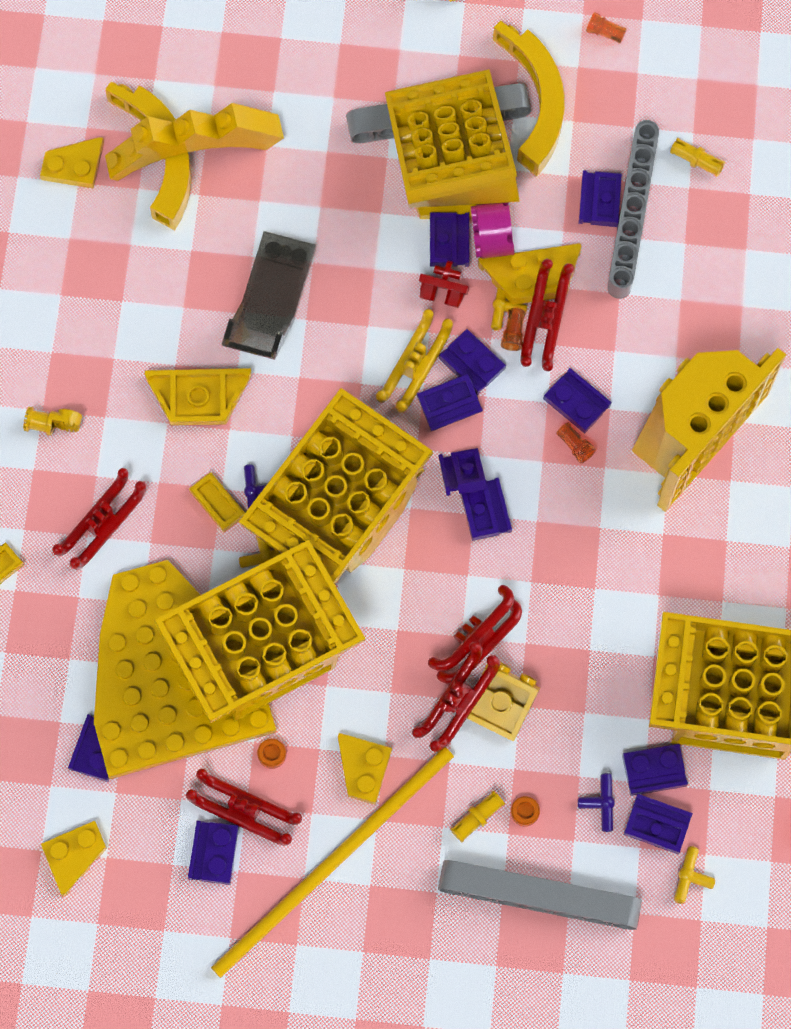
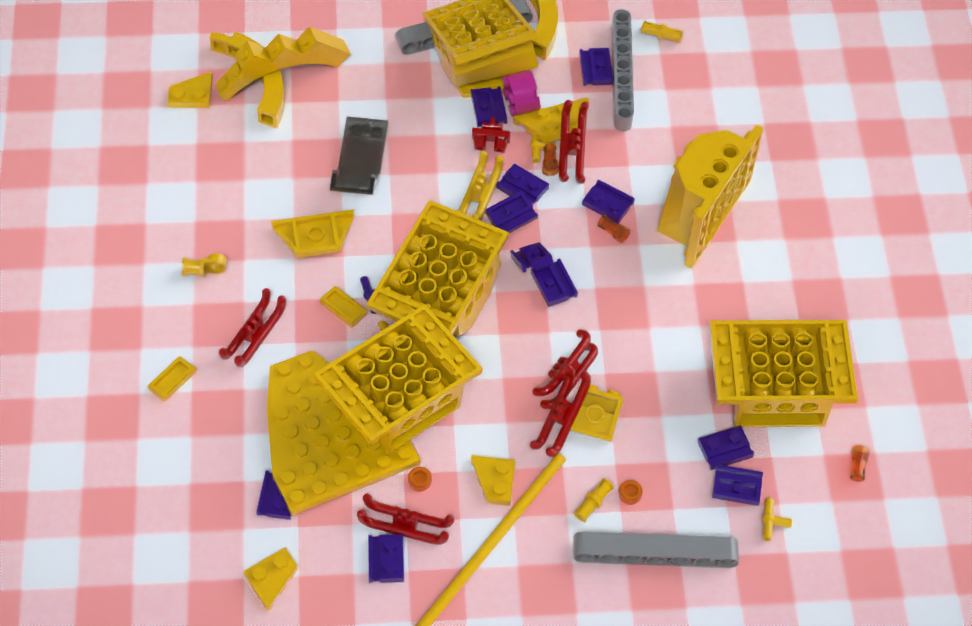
camera: 10 degrees left, 15 degrees down
(605, 802) = (691, 476): dark purple piece -> none

